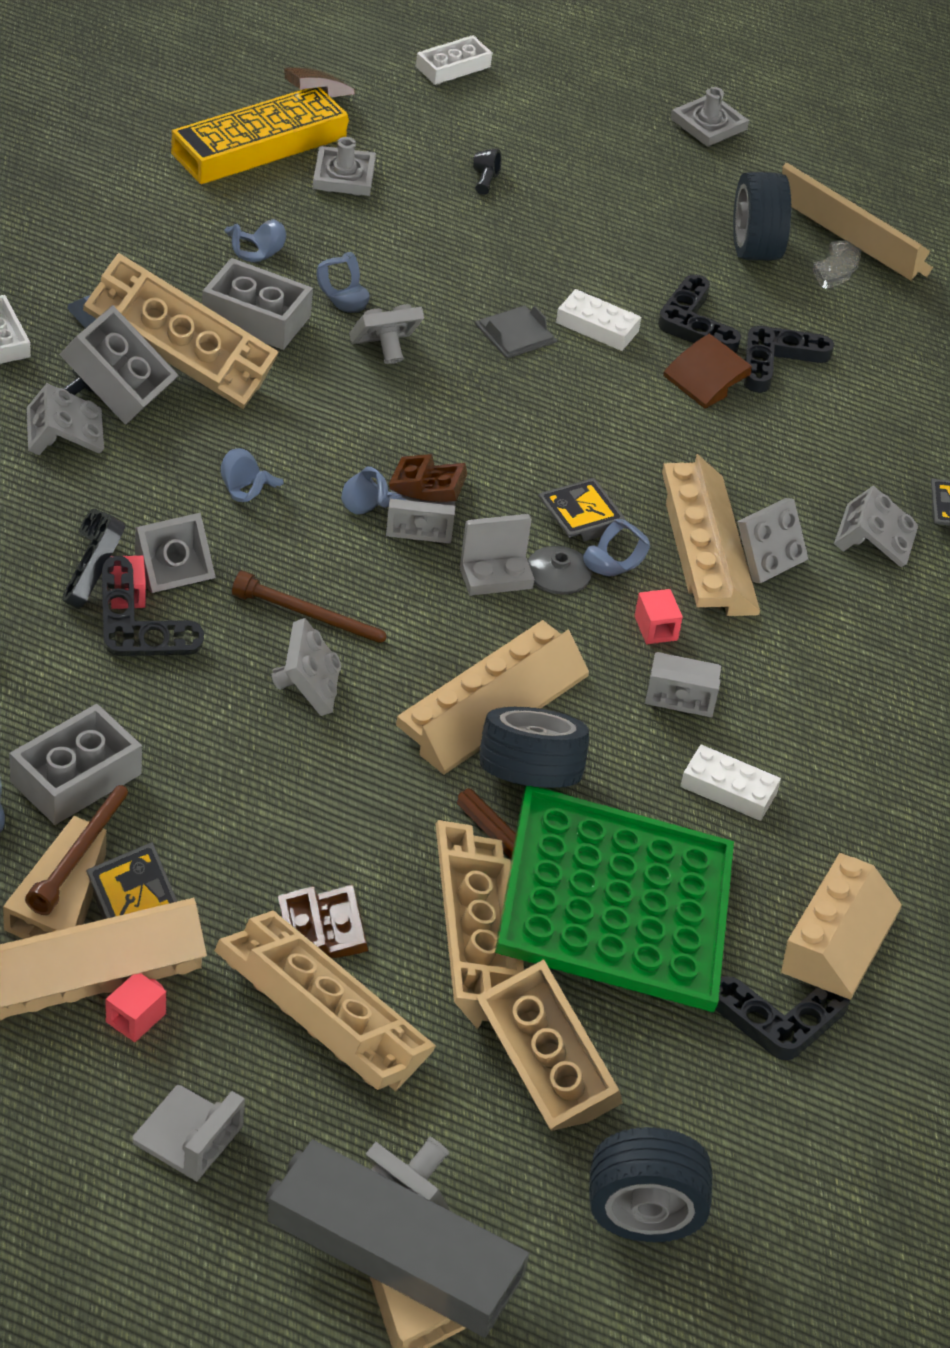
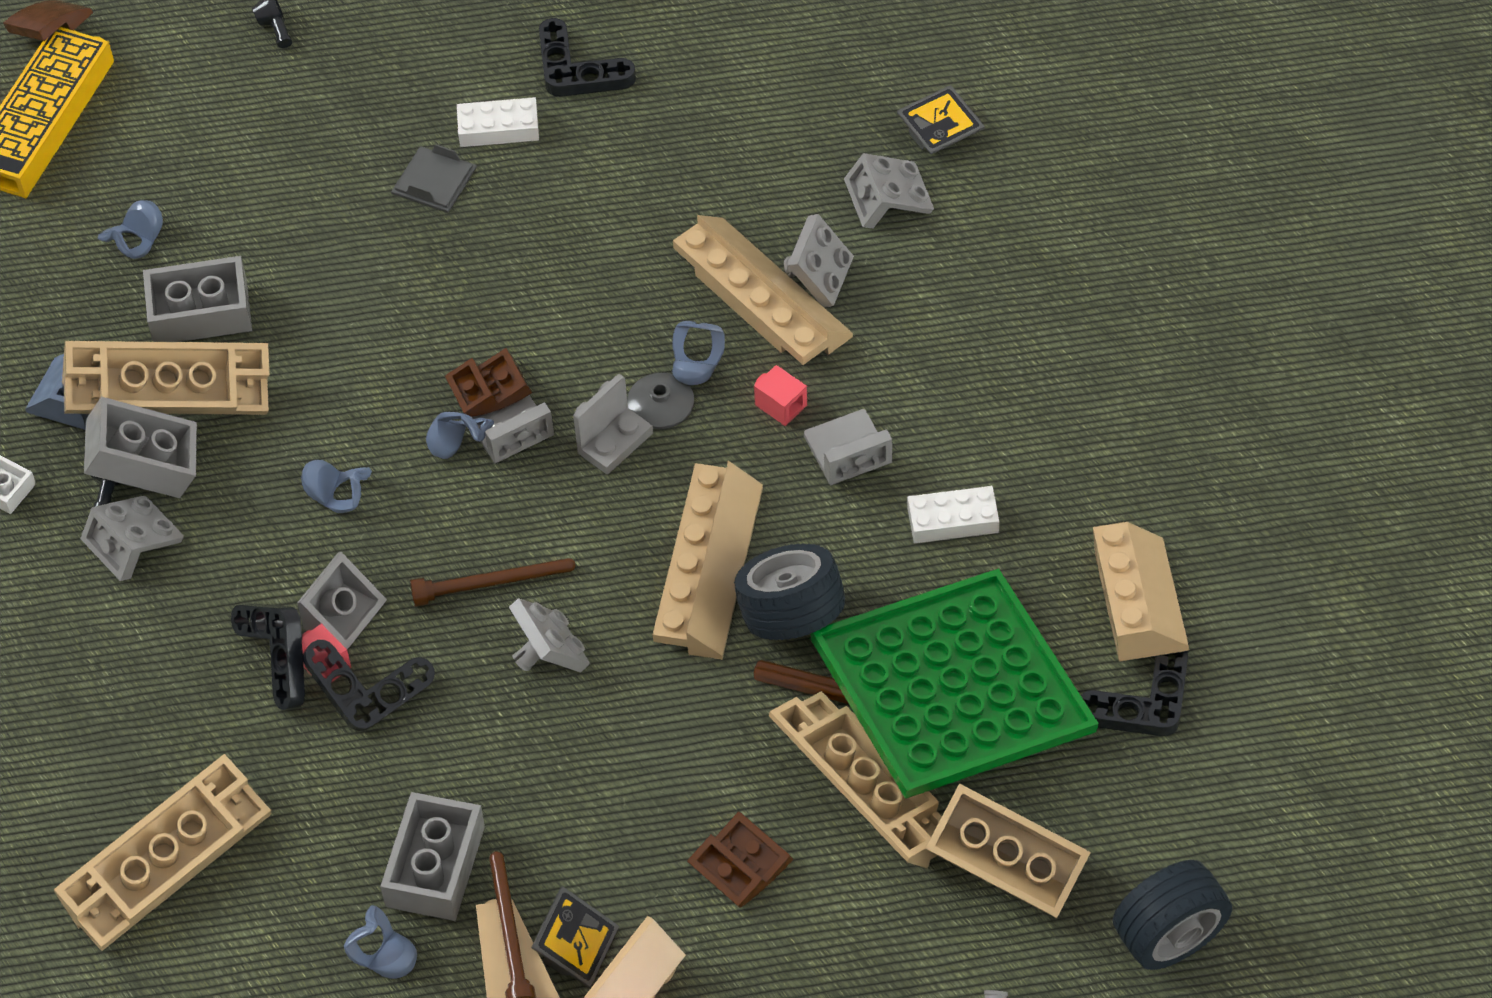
camera: 25 degrees left, 10 degrees up
(326, 1000) = (801, 926): tan slope -> none
(344, 169) = (148, 102): light grey plate -> none
(354, 297) = (266, 235): sand blue piece -> none
(387, 328) = (332, 253): light grey plate -> none
(581, 508) = (637, 329): piece -> none
(707, 371) = (631, 117): reddish brown slope -> none
(817, 350) = (665, 54): black beam -> none

